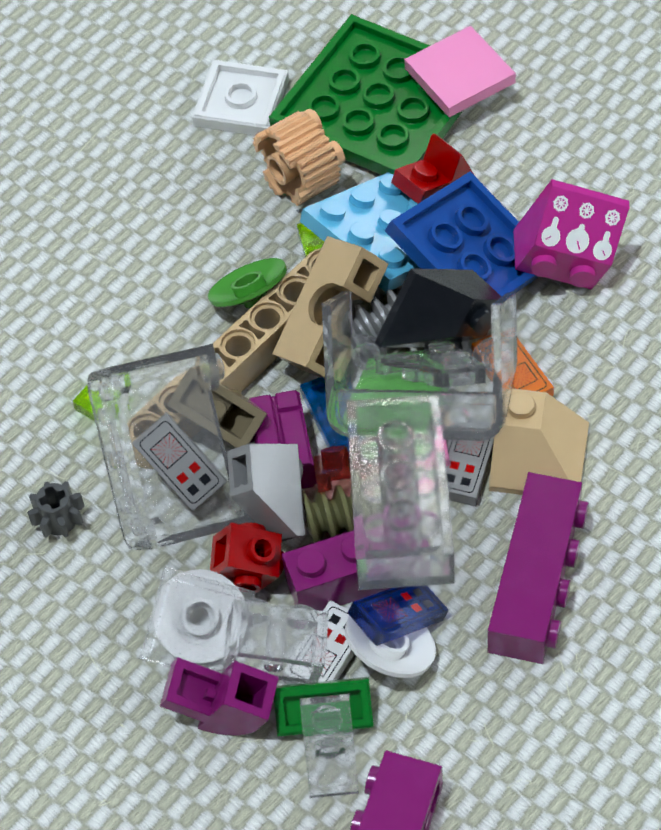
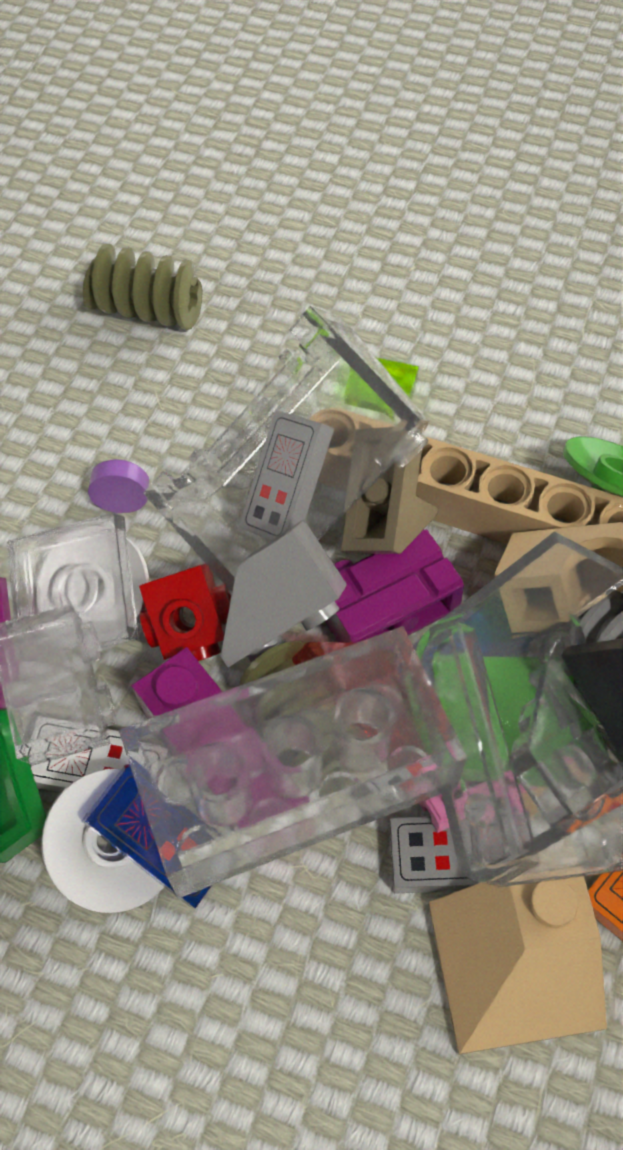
camera: 70 degrees right, 5 degrees up
(56, 509) = (205, 390): dark grey gear -> none
(114, 586) = (118, 486): none -> medium lavender tile
(535, 569) = (296, 1022): magenta brick -> none

